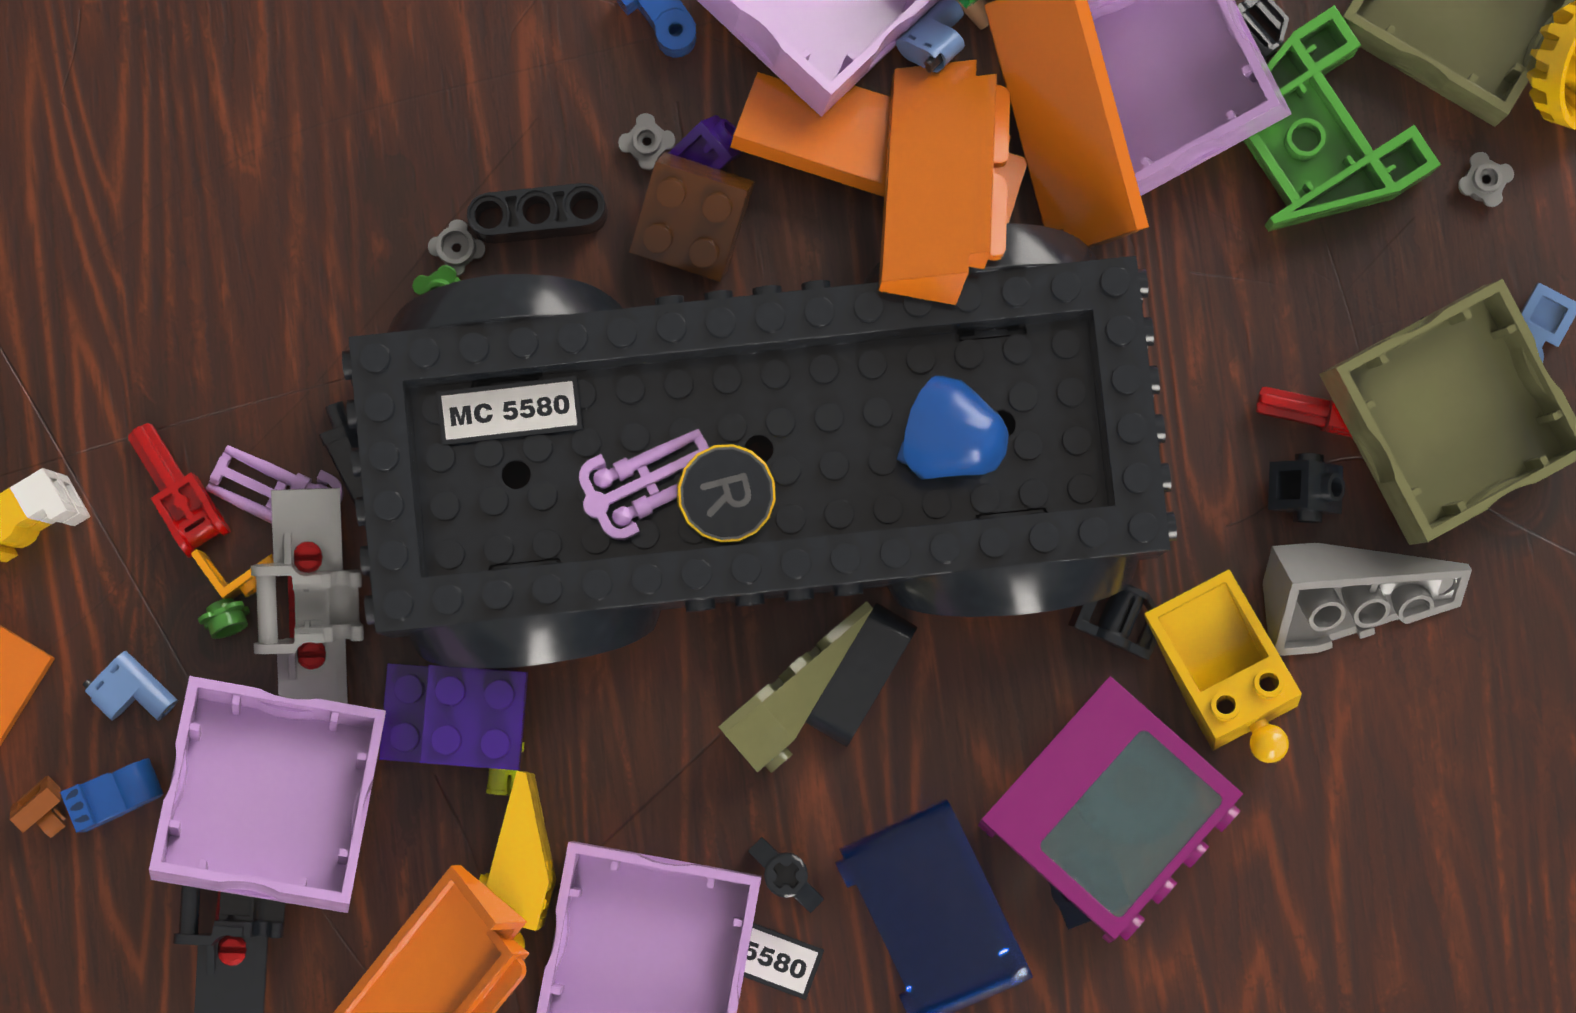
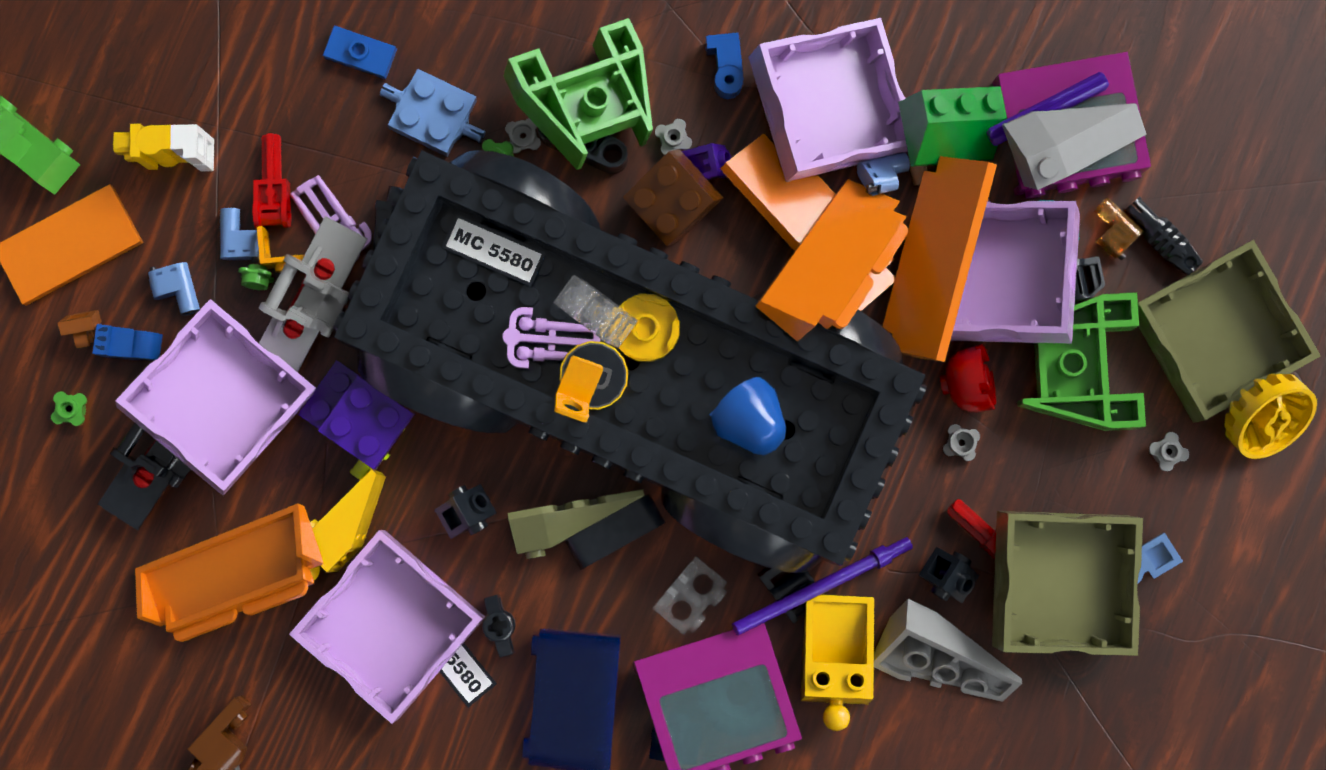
camera: 25 degrees right, 0 degrees up
(98, 924) = (76, 415): none -> bright green plate
(174, 589) = (236, 243): none -> medium blue piece
(189, 260) = (360, 52): none -> blue plate
(325, 284) = (432, 112): none -> medium blue plate
(516, 156) = (587, 100): none -> bright green wedge
(663, 747) = (466, 511): none -> black brick
(683, 412) = (595, 311): none -> clear brick
(717, 519) = (577, 388): none -> light orange bracket
(755, 397) = (655, 330): none -> yellow tile
(988, 697) = (683, 590): none -> clear brick
(1191, 232) = (970, 380): none -> red cylinder
(1205, 518) = (878, 558): none -> dark purple bar
(1233, 304) = (970, 438): none -> light grey plate

